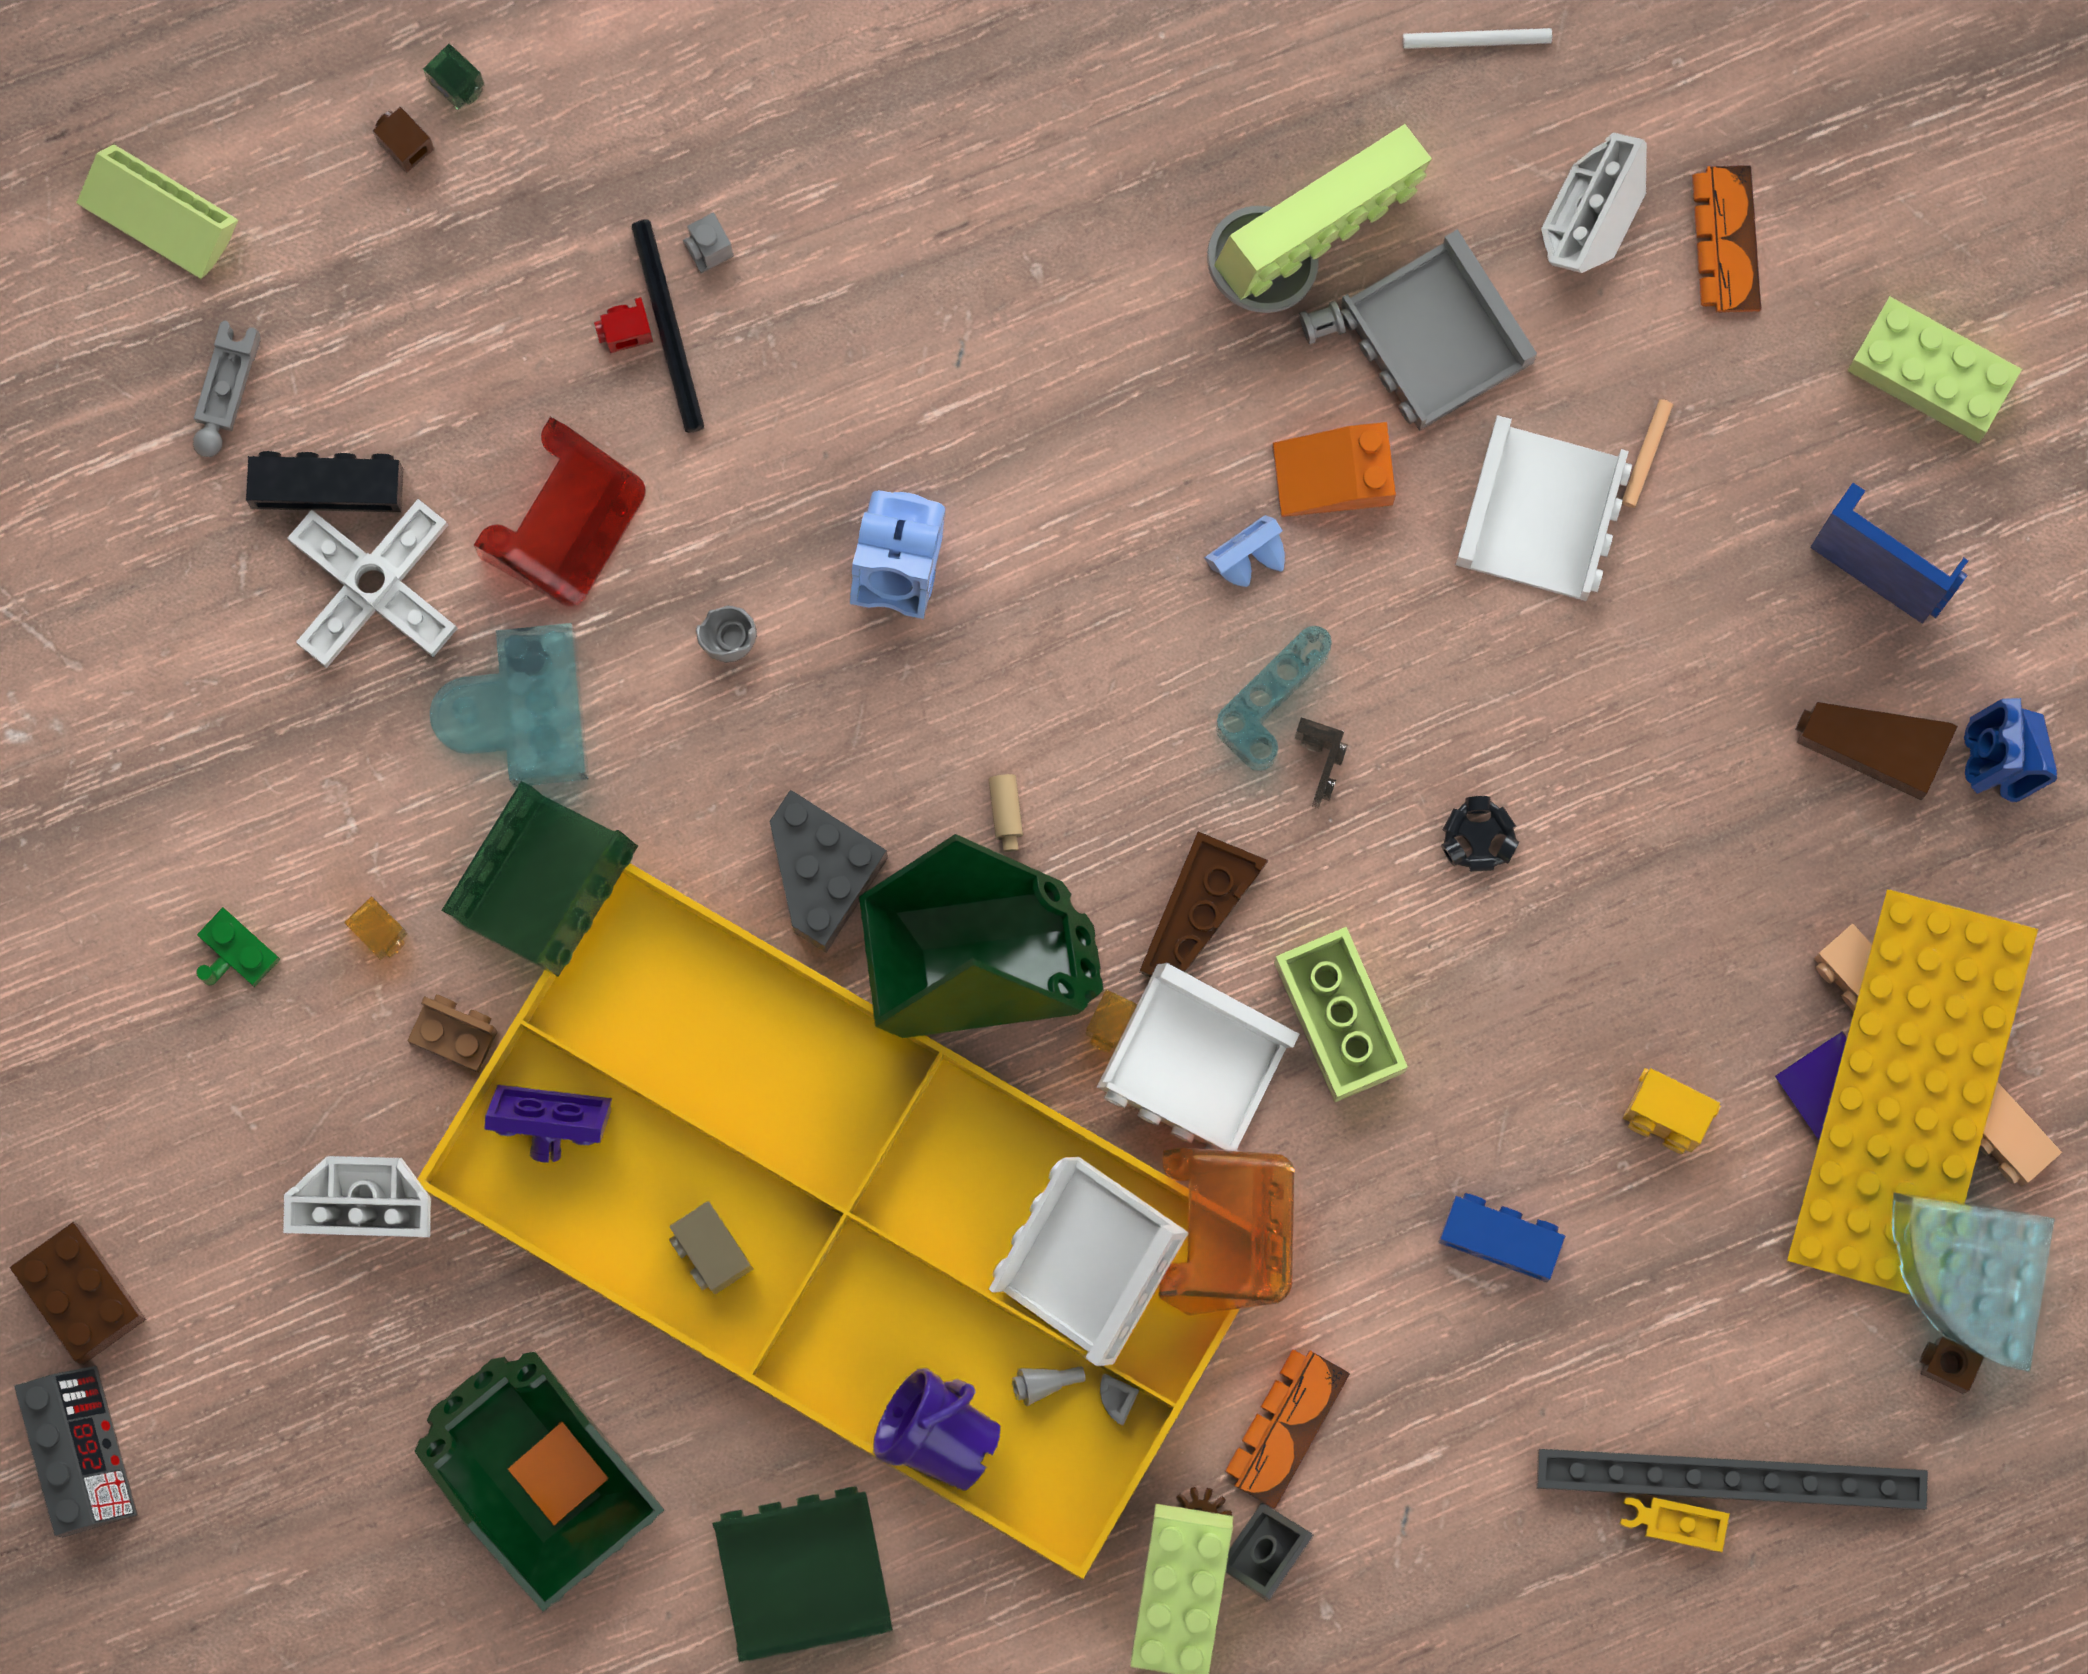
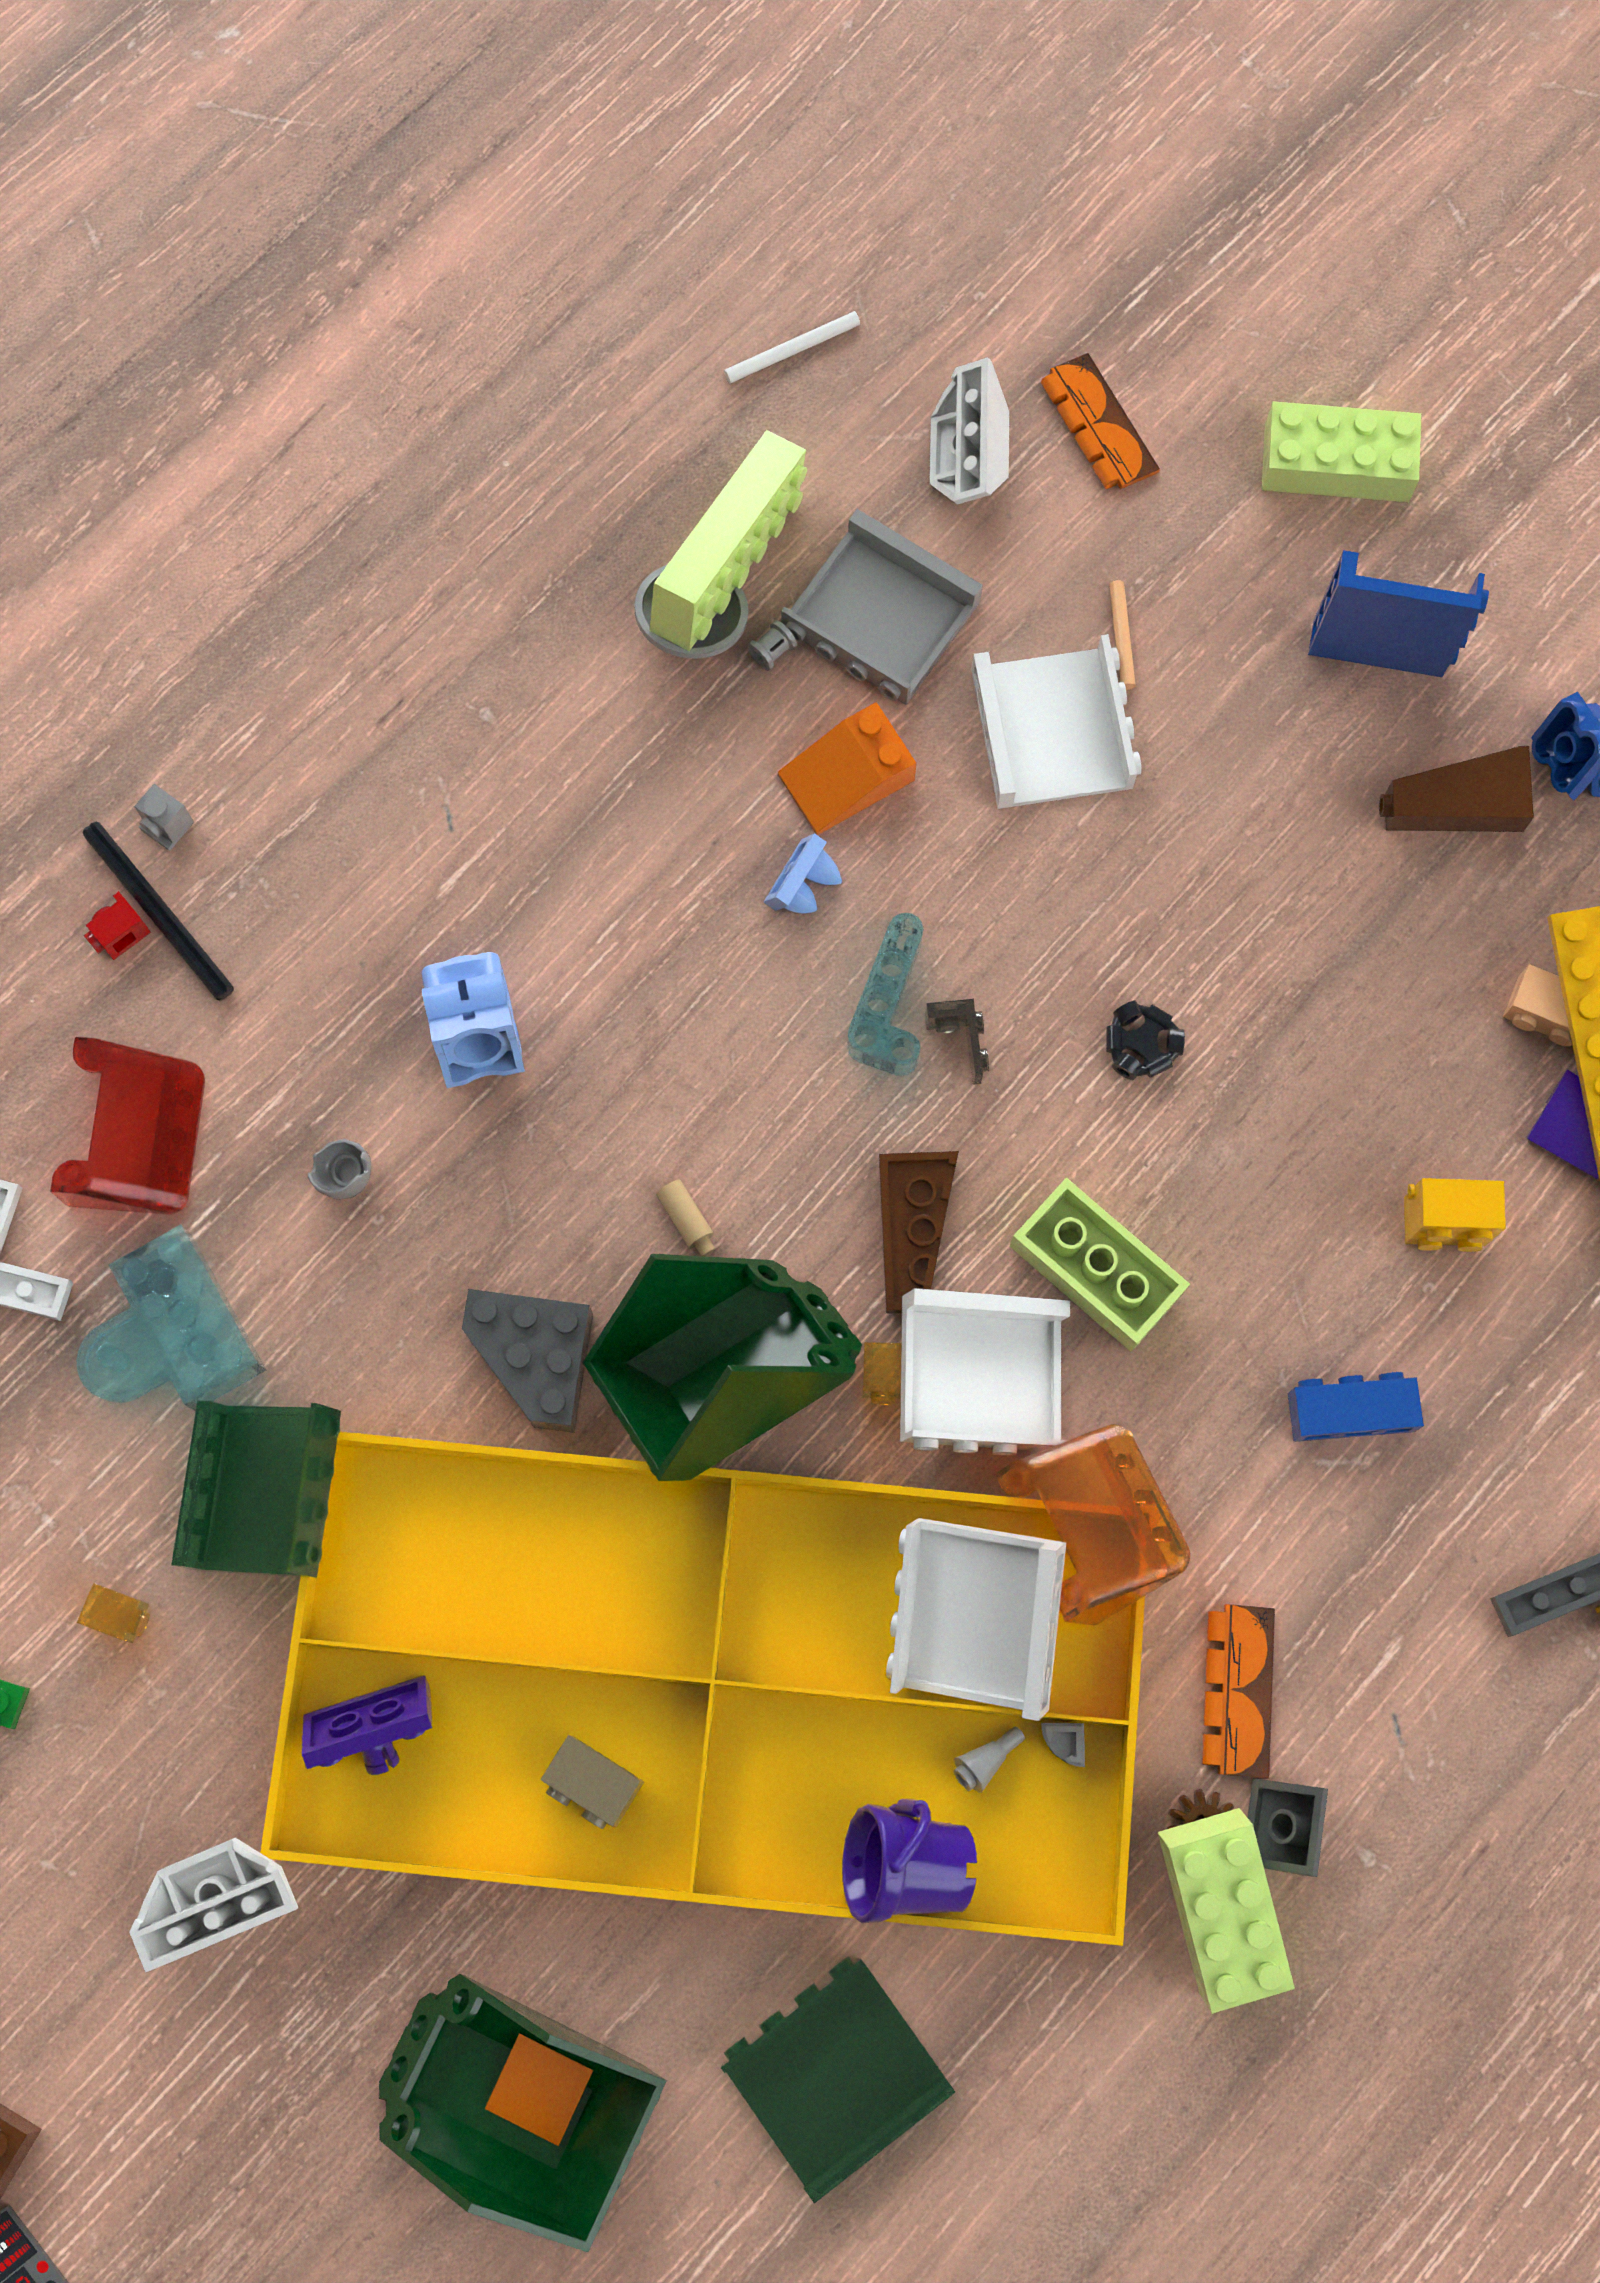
camera: 25 degrees left, 5 degrees down
(452, 1033) = (236, 1683): medium nougat bracket -> none

